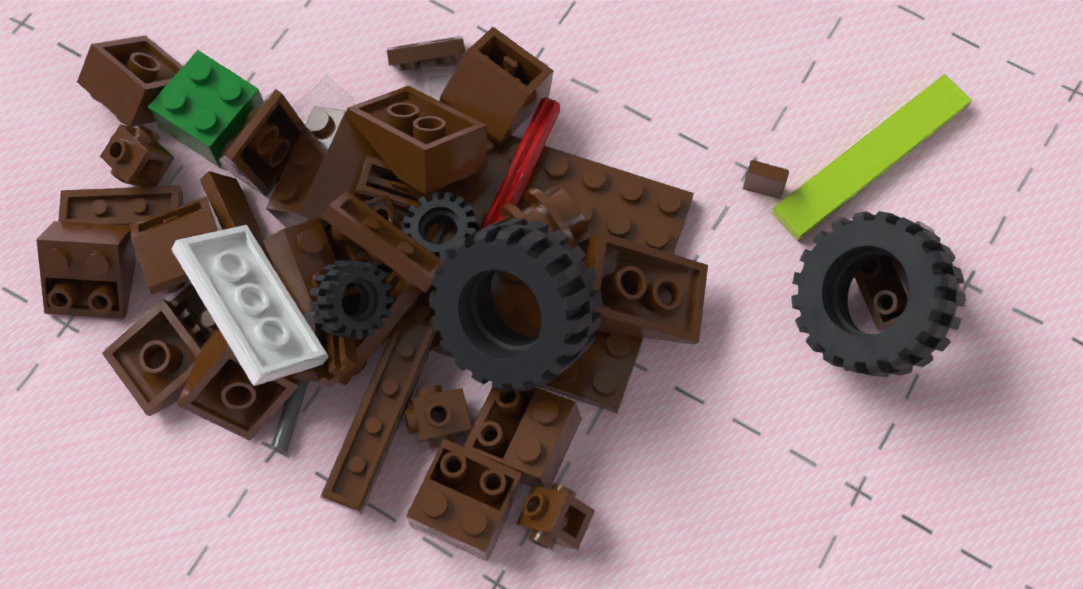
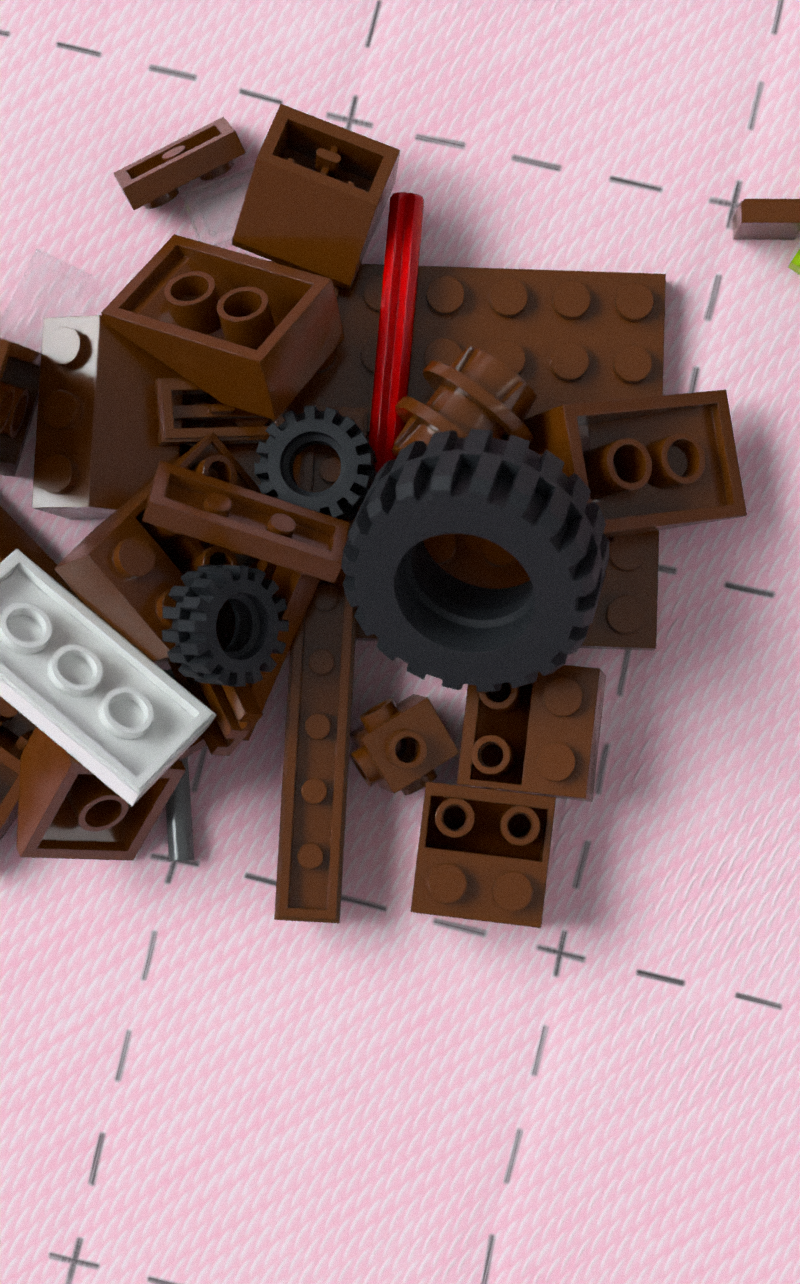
camera: 15 degrees left, 15 degrees up
(555, 517) = (619, 840): reddish brown brick -> none

